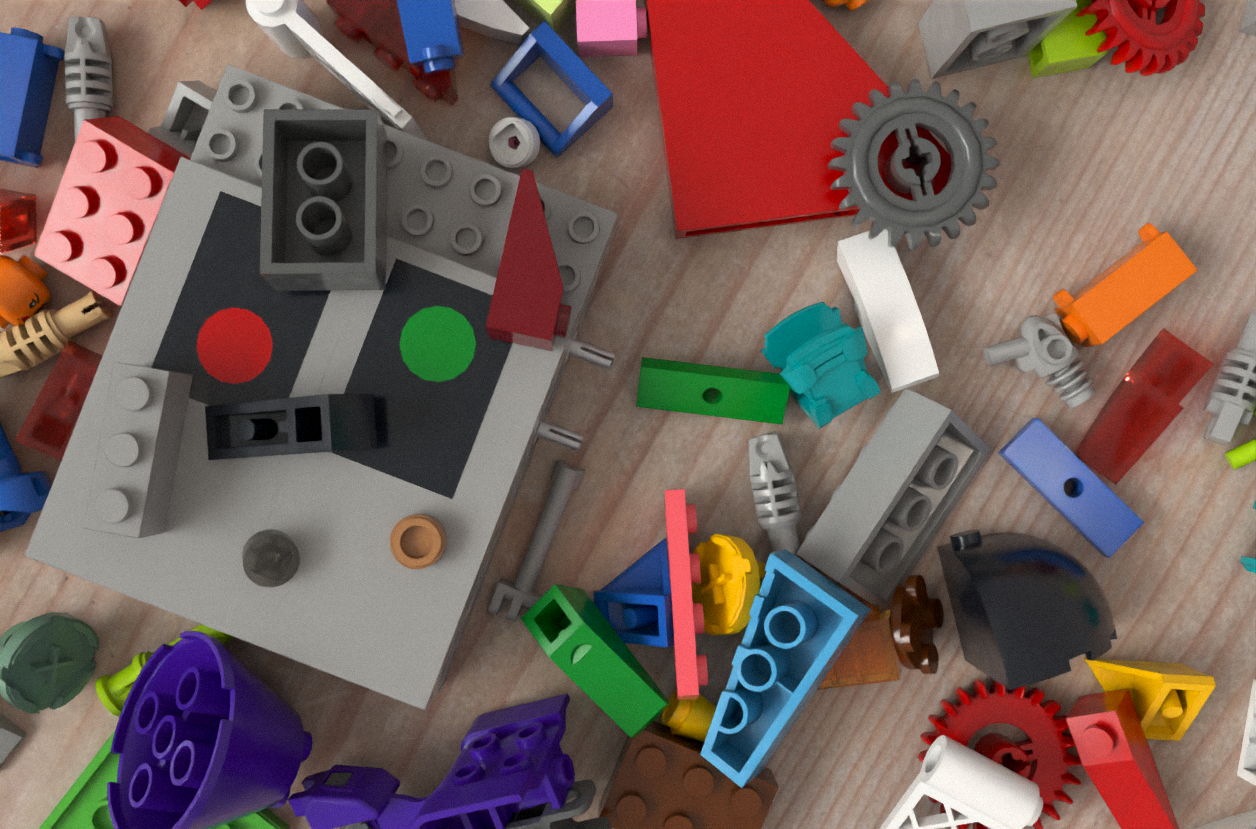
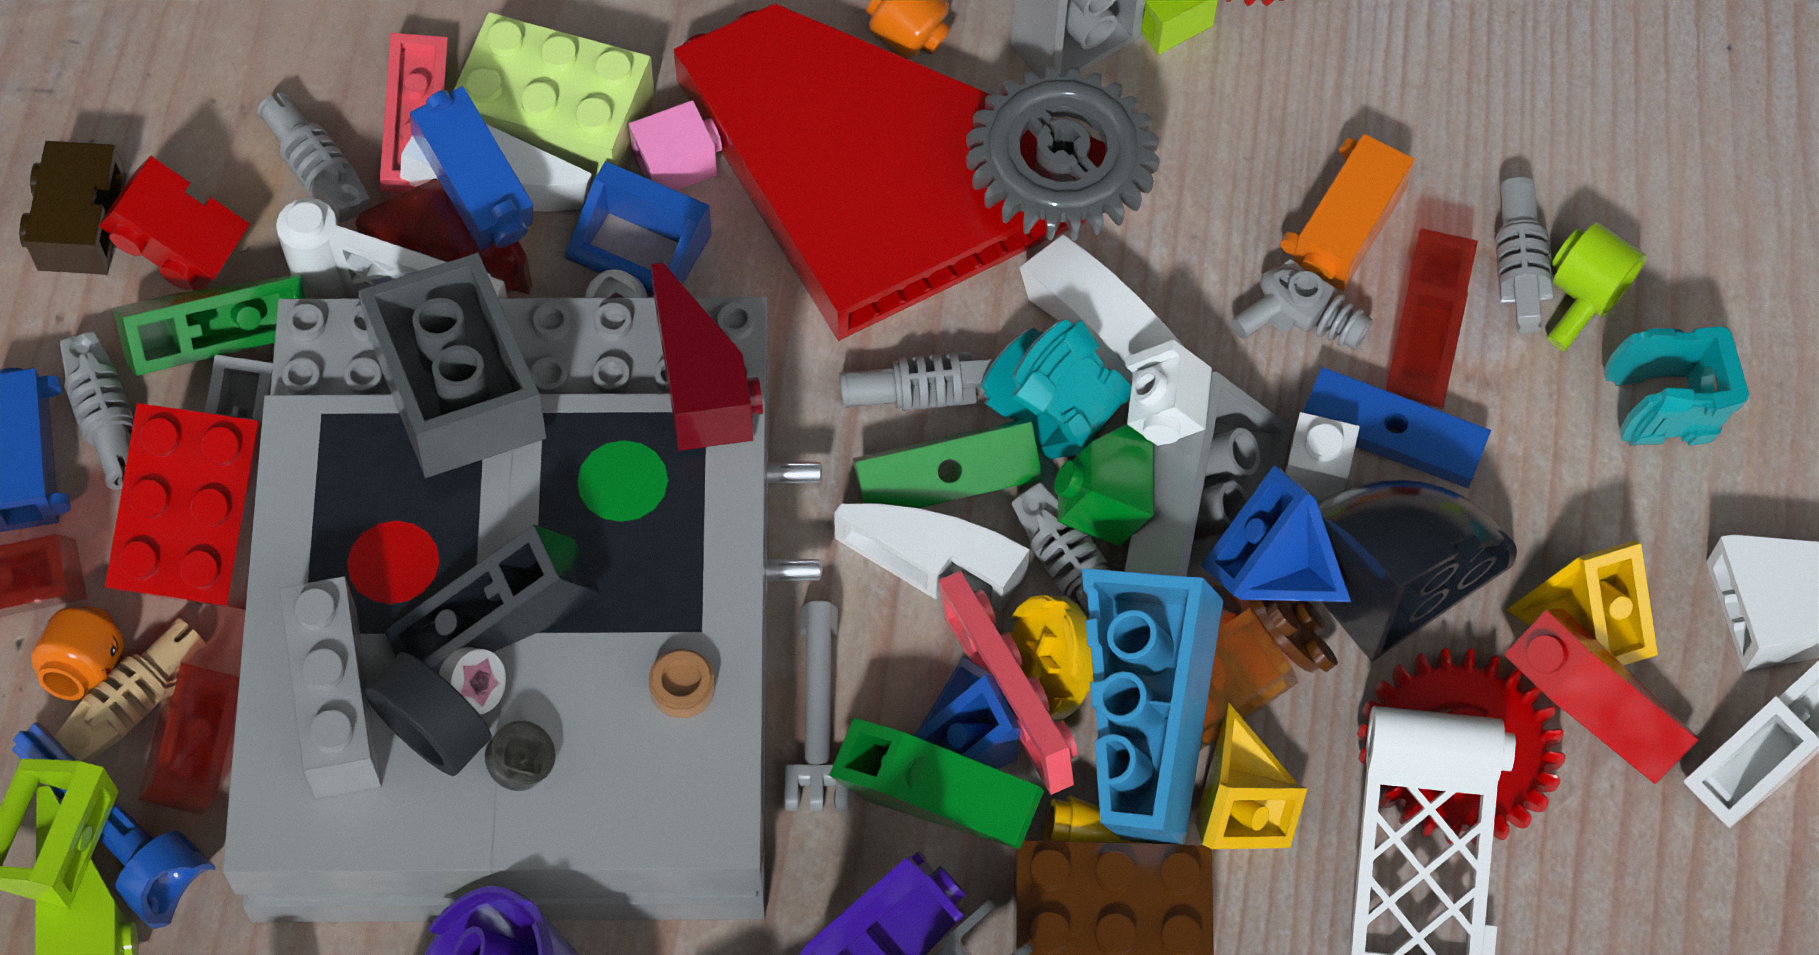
camera: 25 degrees left, 25 degrees down
(180, 46) = (202, 323): none -> green slope
(199, 510) = (428, 713): none -> black tyre
(252, 483) = (476, 675): none -> white tile
(677, 455) = (931, 546): none -> white slope
(721, 305) = (917, 382): none -> light grey hinge
(819, 746) = (1247, 793): none -> yellow slope
(830, 460) = (1108, 486): none -> green slope
(904, 414) = (1168, 393): none -> white brick
(931, 586) = (1278, 547): none -> blue slope
(1000, 497) = (1321, 454): none -> white brick

